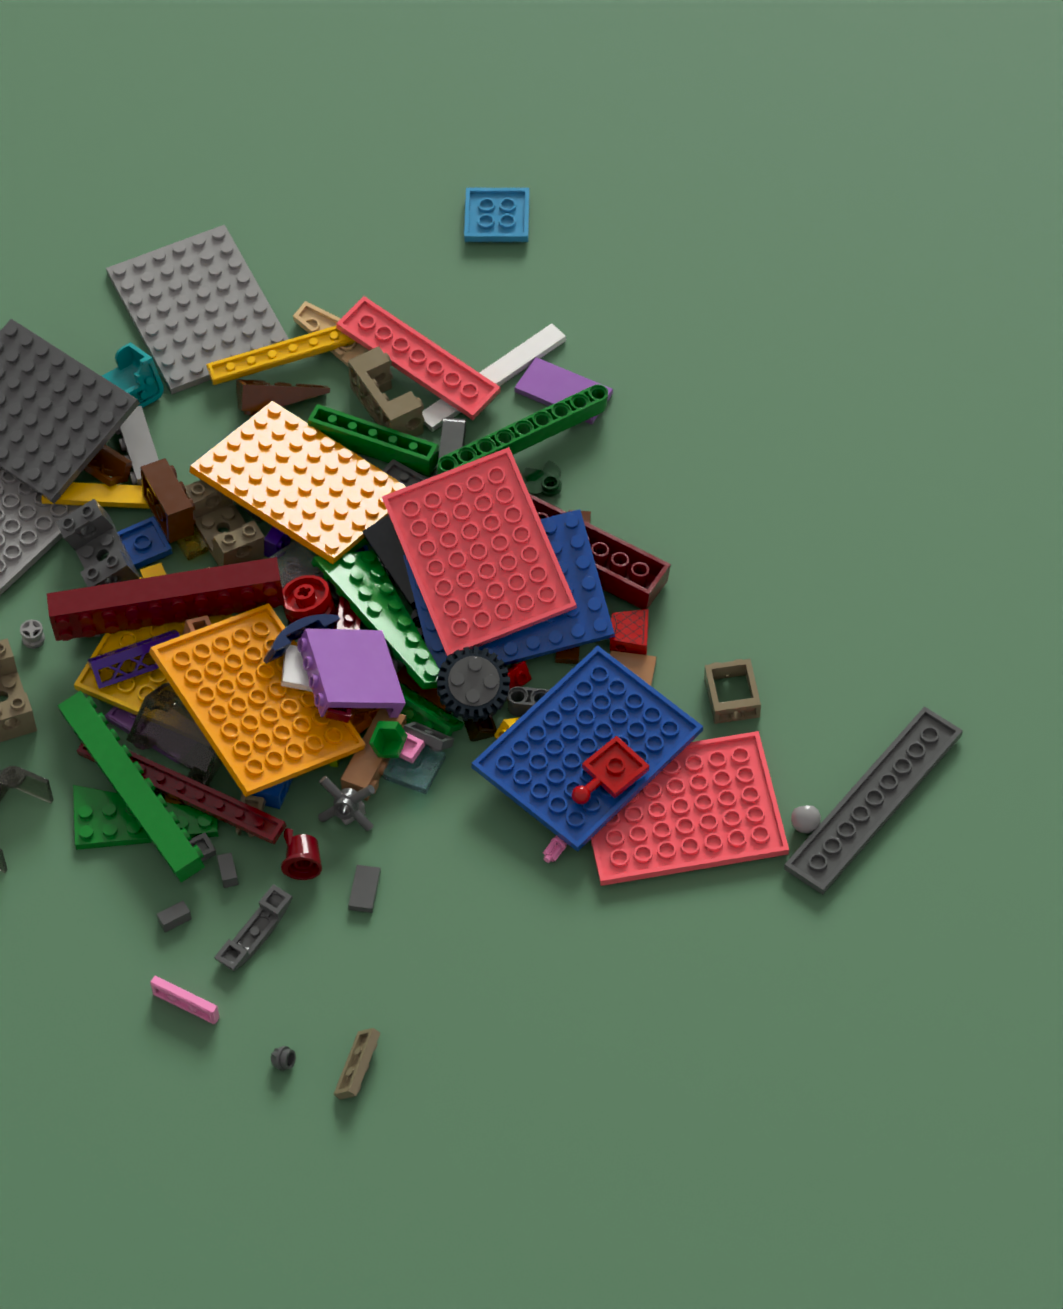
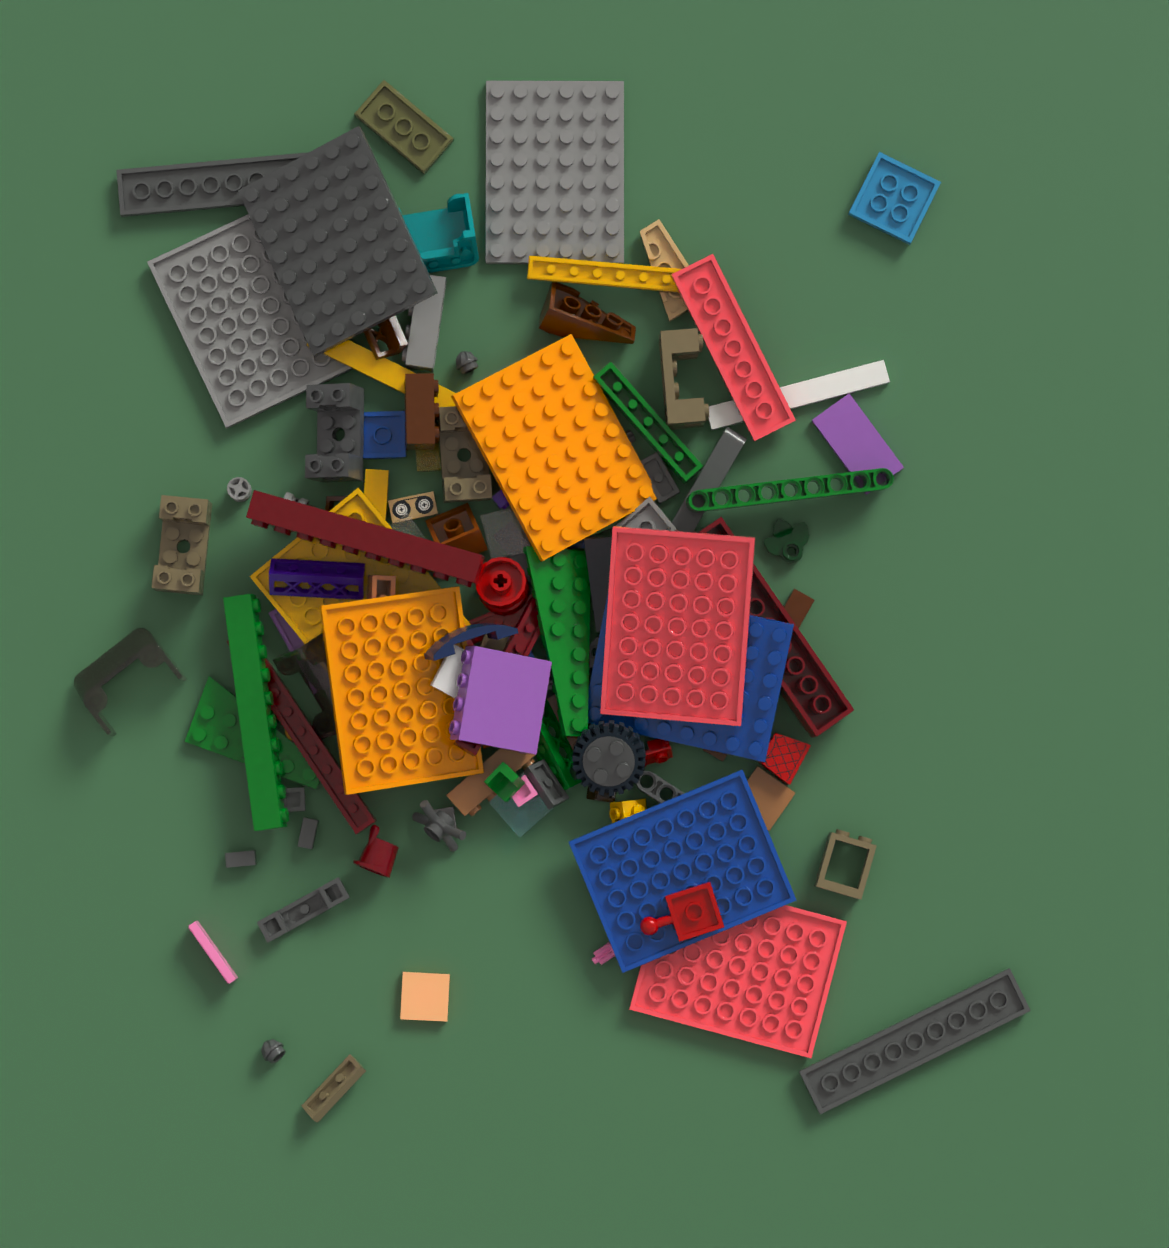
camera: 15 degrees right, 30 degrees up
(59, 327) = (404, 127): none -> olive tile
(187, 461) = (466, 362): none -> dark grey plate
(364, 888) = (420, 910): dark grey tile -> none
(405, 955) = (425, 996): none -> light nougat tile
(805, 819) = (842, 1034): light grey piece -> none

